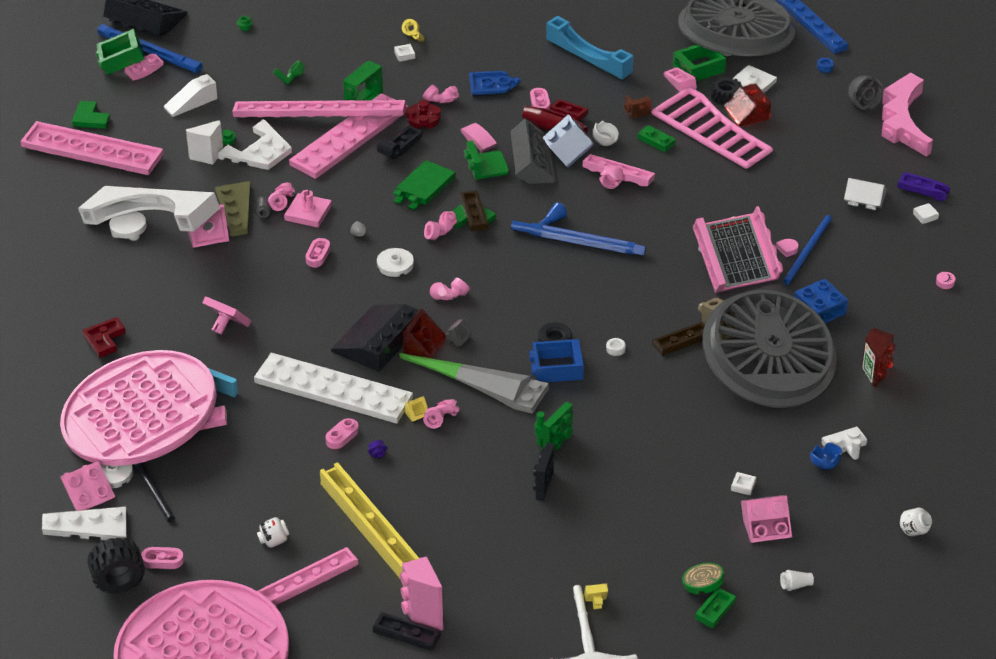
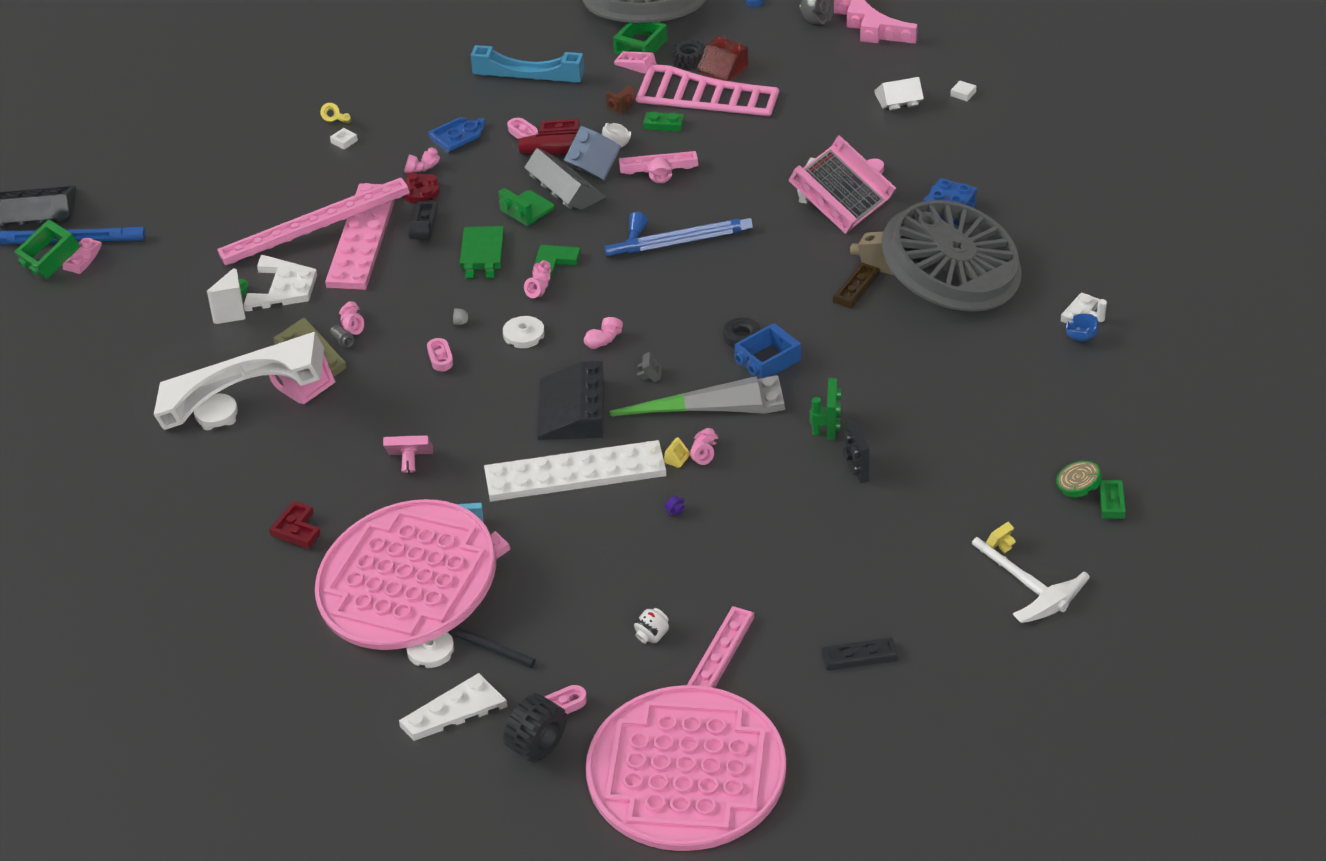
camera: 30 degrees left, 0 degrees up
(87, 117) = (66, 329): green tile -> none
(87, 486) = (421, 672): bright pink plate -> none
(92, 148) = (102, 354): bright pink plate -> none
(194, 94) = (164, 262): white slope -> none
(244, 23) = (149, 173): green plate -> none
(296, 70) = (249, 195): green plate -> none
(308, 209) = (388, 319): bright pink tile -> none
(342, 433) = (624, 508): bright pink plate -> none
(366, 73) = (338, 182): green window -> none
(367, 518) = (736, 573): light yellow tile -> none
(422, 336) = (621, 386): clear red slope -> none
(422, 593) = (861, 608): bright pink slope -> none
(473, 211) = (558, 253): dark brown tile -> none
(480, 136) = (490, 183): bright pink slope -> none
(615, 347) = (804, 318): white tile -> none
(743, 483) = (1030, 384): white tile -> none
(752, 75) = (703, 33): white plate -> none
(766, 518) = (1082, 402): bright pink slope -> none
(793, 580) = (1154, 444): white cone -> none
(806, 251) = (892, 162): blue piece -> none
(877, 355) = (1047, 224): clear red slope -> none
(915, 521) = (1209, 348): white head -> none
(924, 186) = (941, 68): dark purple hinge -> none
(945, 280) = (1034, 139): bright pink tile -> none

